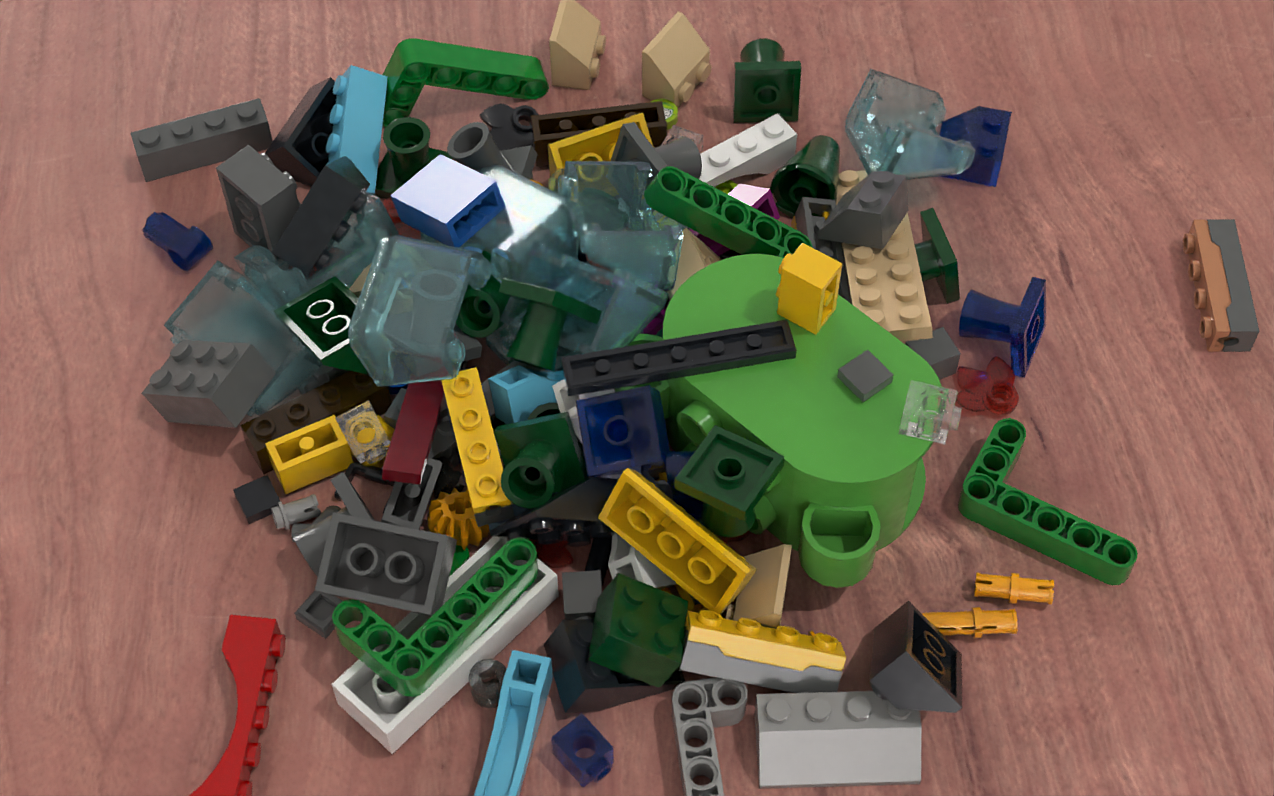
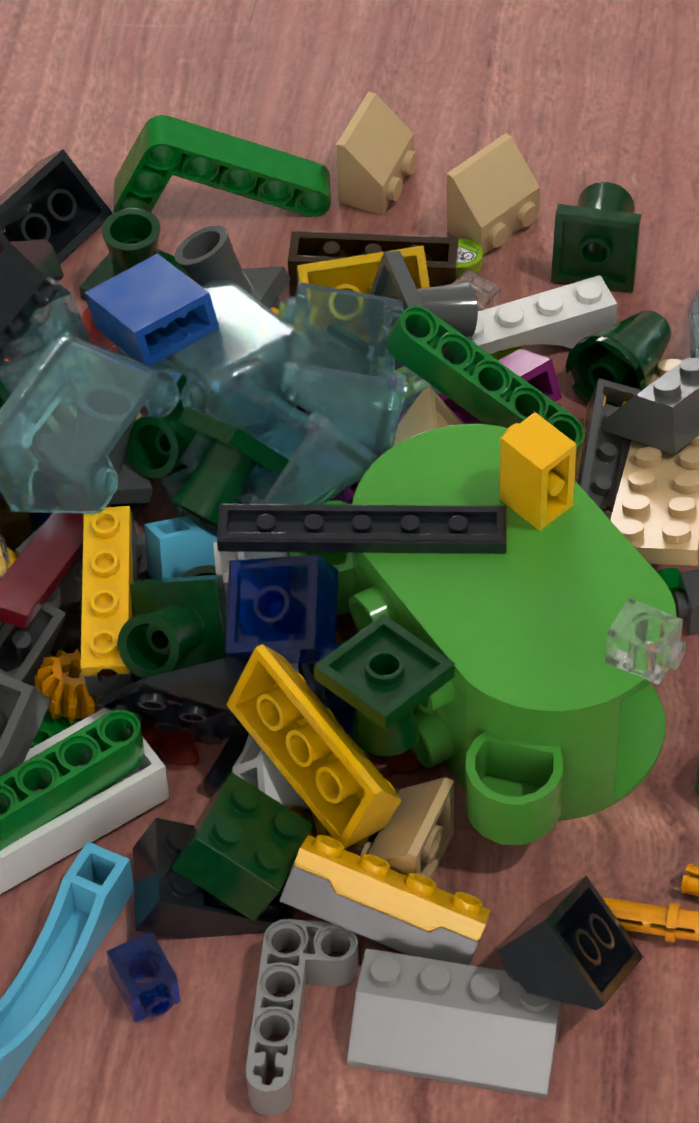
camera: 15 degrees right, 5 degrees down
(358, 120) = (81, 208): medium azure brick -> none
(487, 693) = (47, 865): clear smoke wheel -> none
(505, 125) = (265, 240): black plate -> none
(581, 594) = (190, 793): dark grey brick -> none
(865, 375) = (582, 587): dark grey tile -> none

